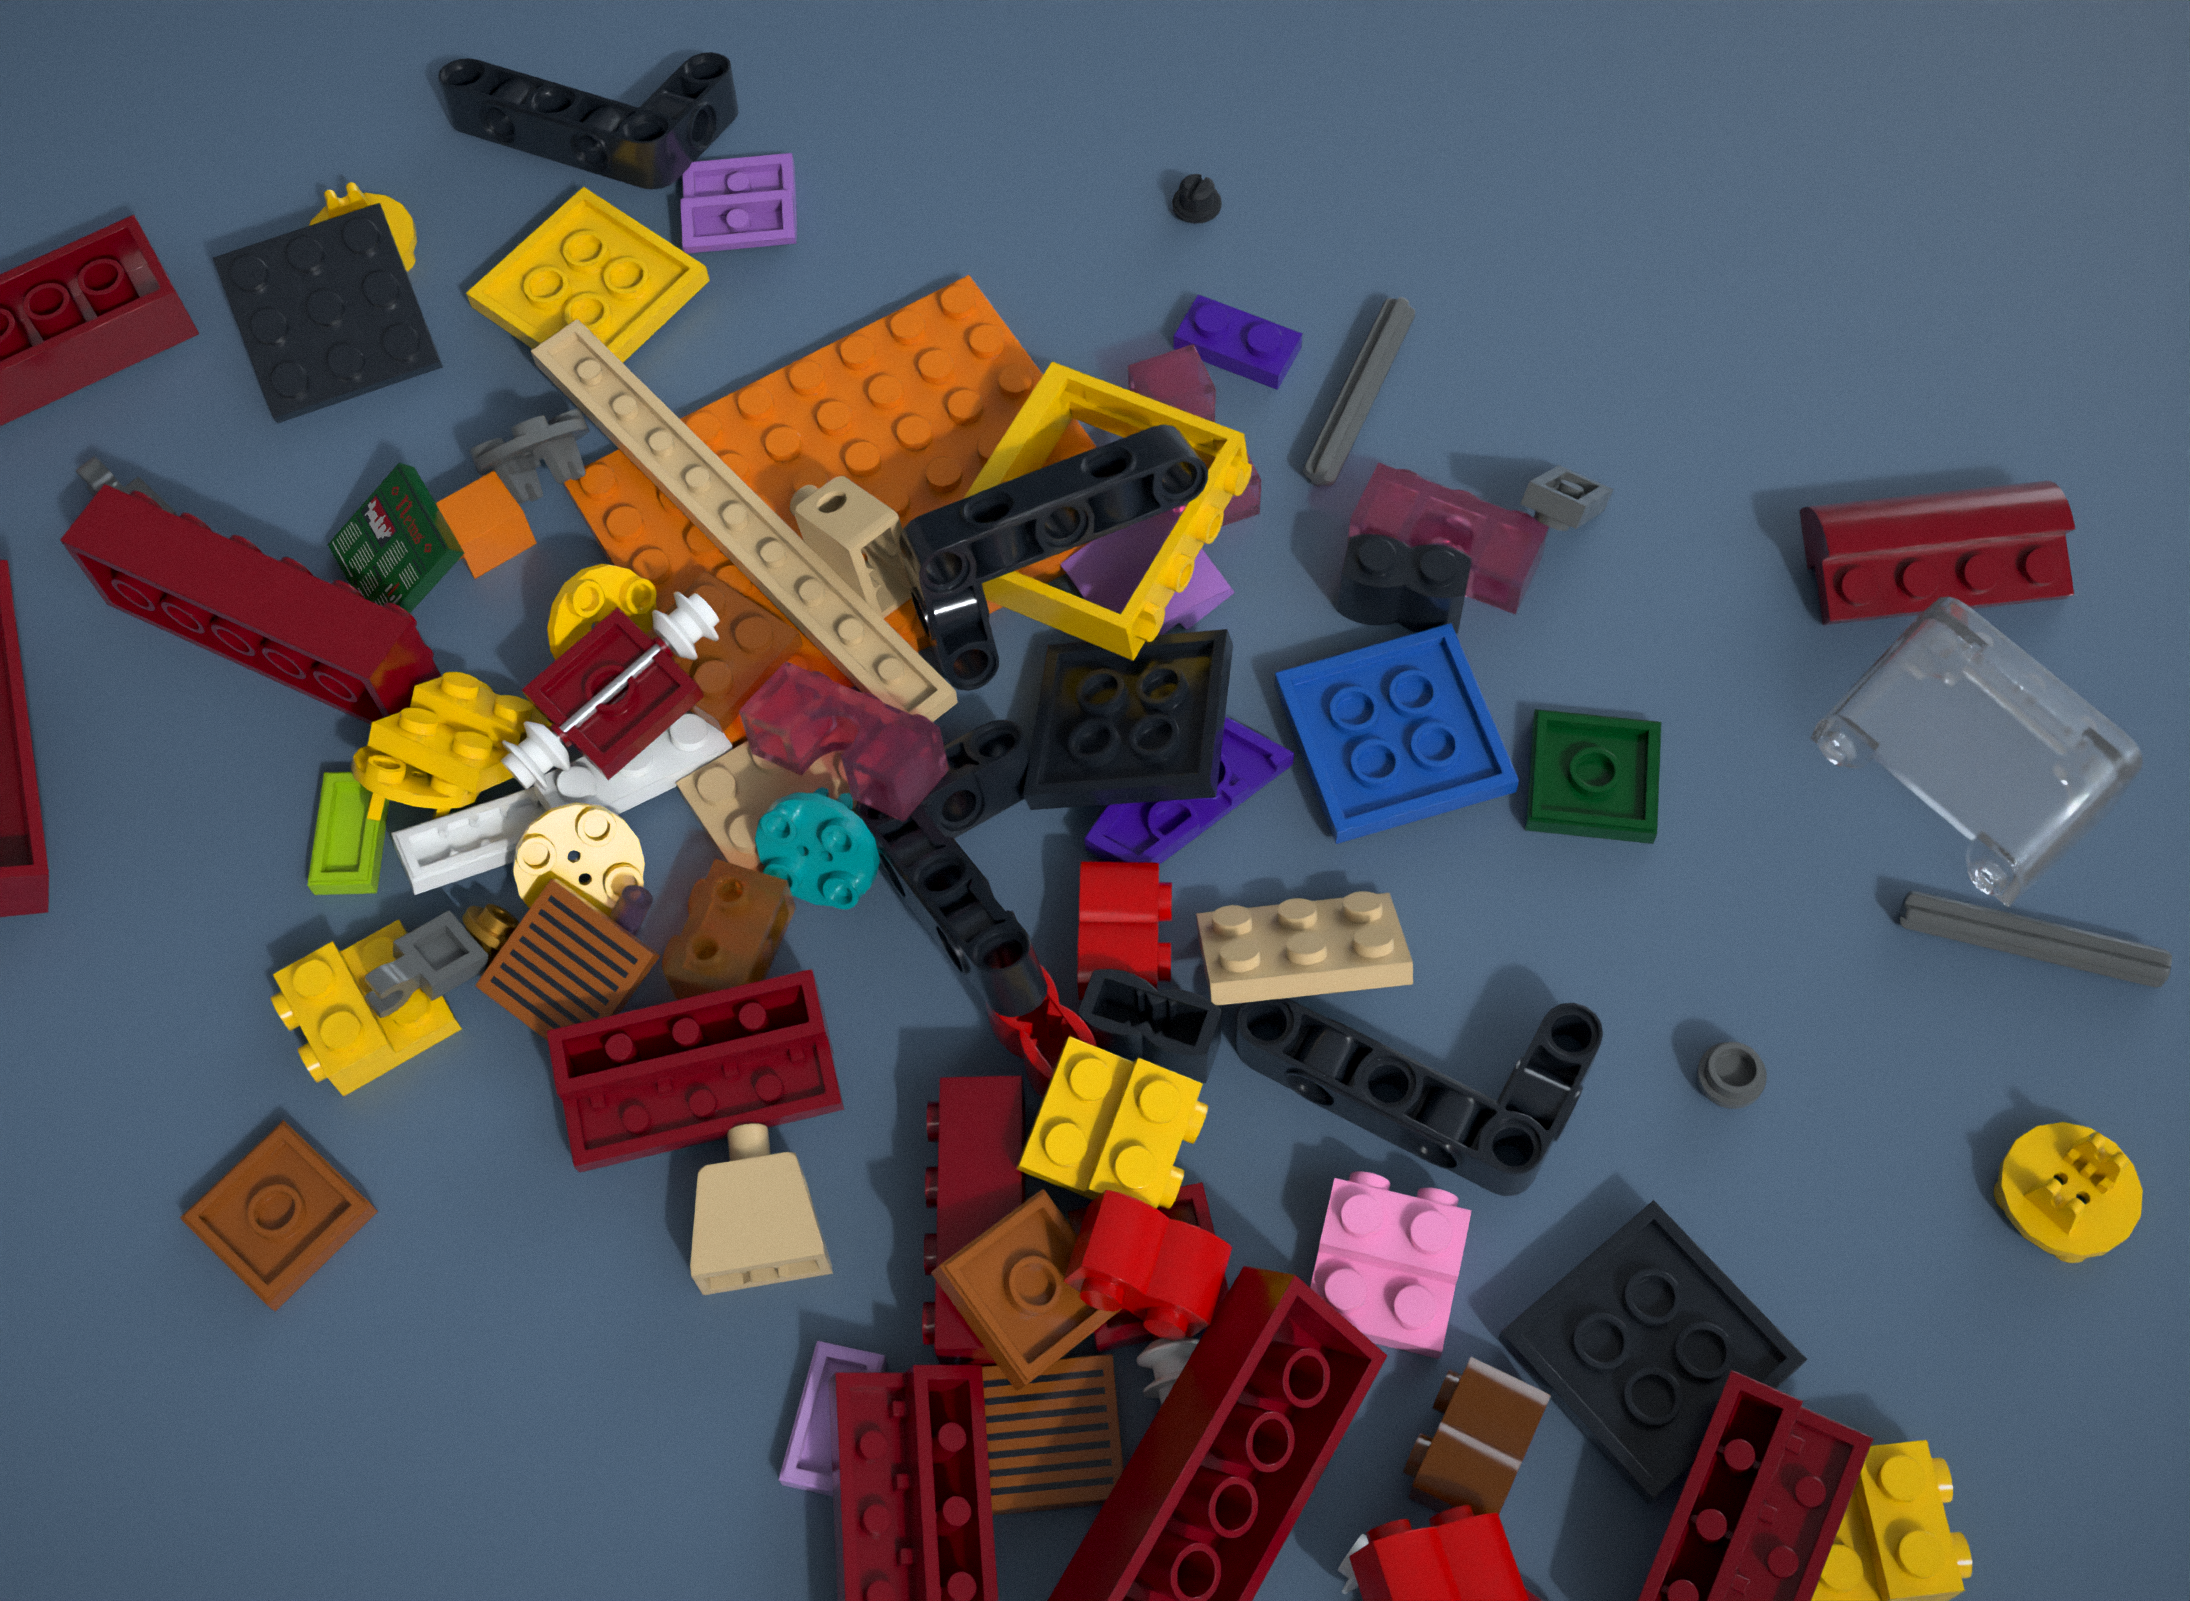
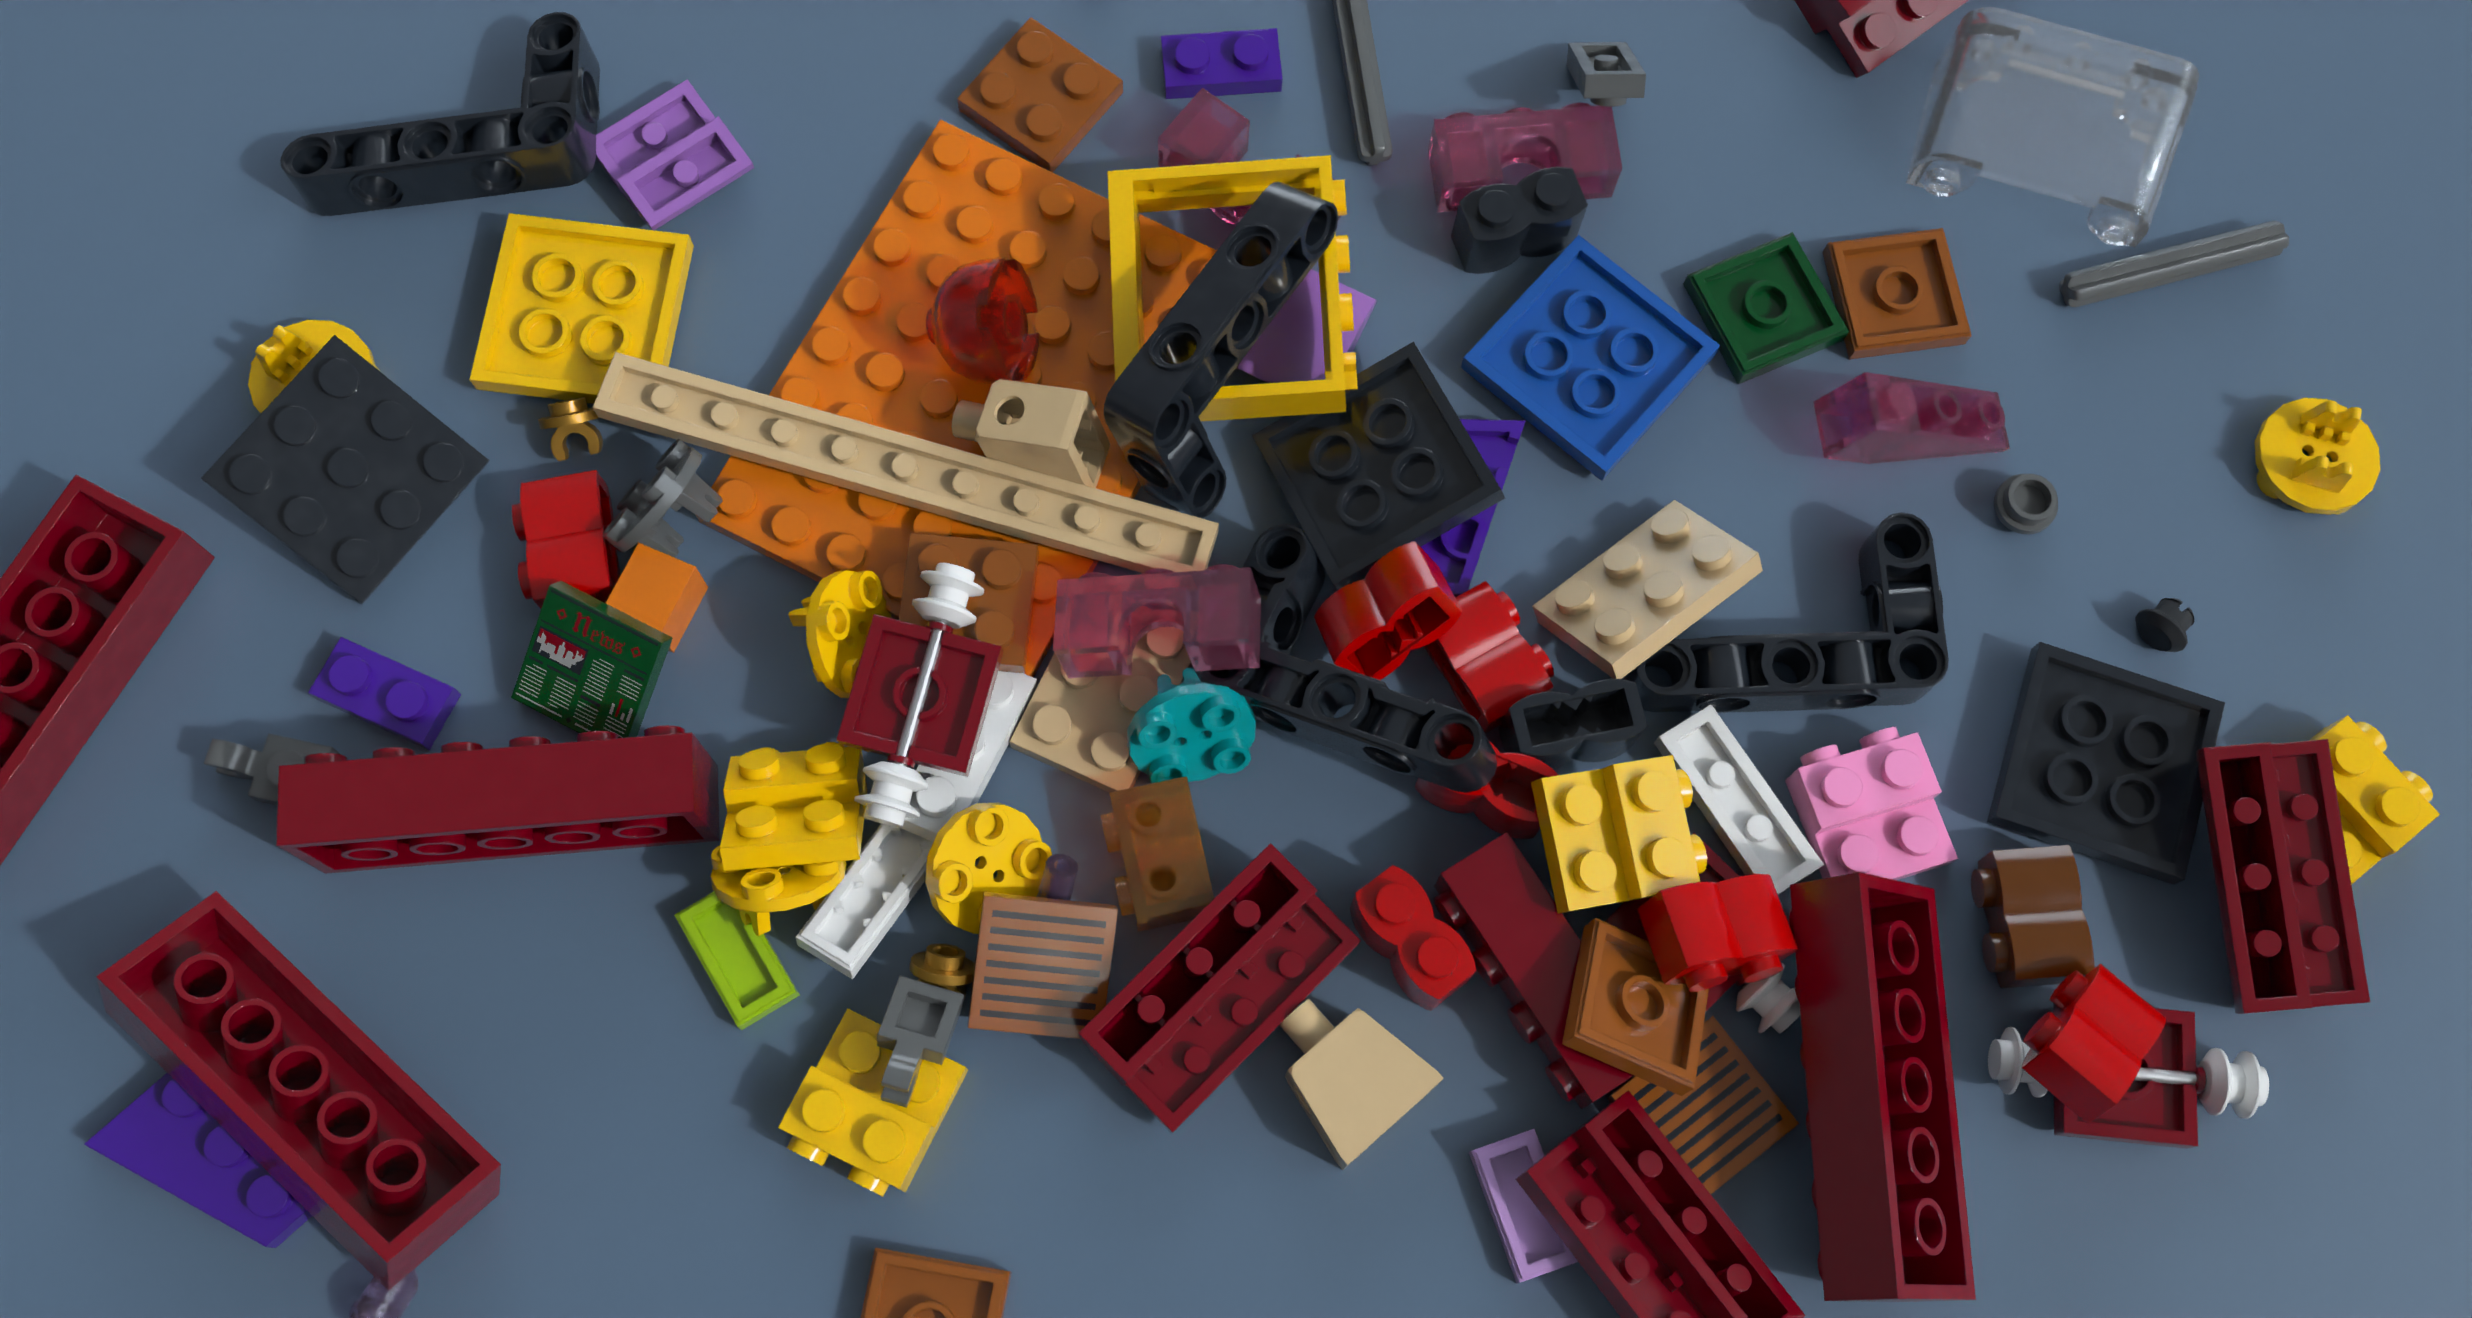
camera: 40 degrees left, 10 degrees up
(243, 492) = (385, 693): none -> dark purple plate
(445, 432) = (564, 534): none -> red brick
(516, 359) = (571, 417): none -> pearl gold plate
(880, 435) = (983, 321): none -> clear red cylinder
(887, 1126) = (1400, 925): none -> red brick
(1048, 840) = (1388, 613): none -> red brick
(1067, 296) = (1040, 95): none -> dark orange plate
(1265, 1177) = (1738, 801): none -> white plate
(1662, 939) = (1908, 419): none -> clear pink slope
(1731, 827) = (1896, 293): none -> dark orange tile
(1800, 1259) = (2165, 625): none -> black piece

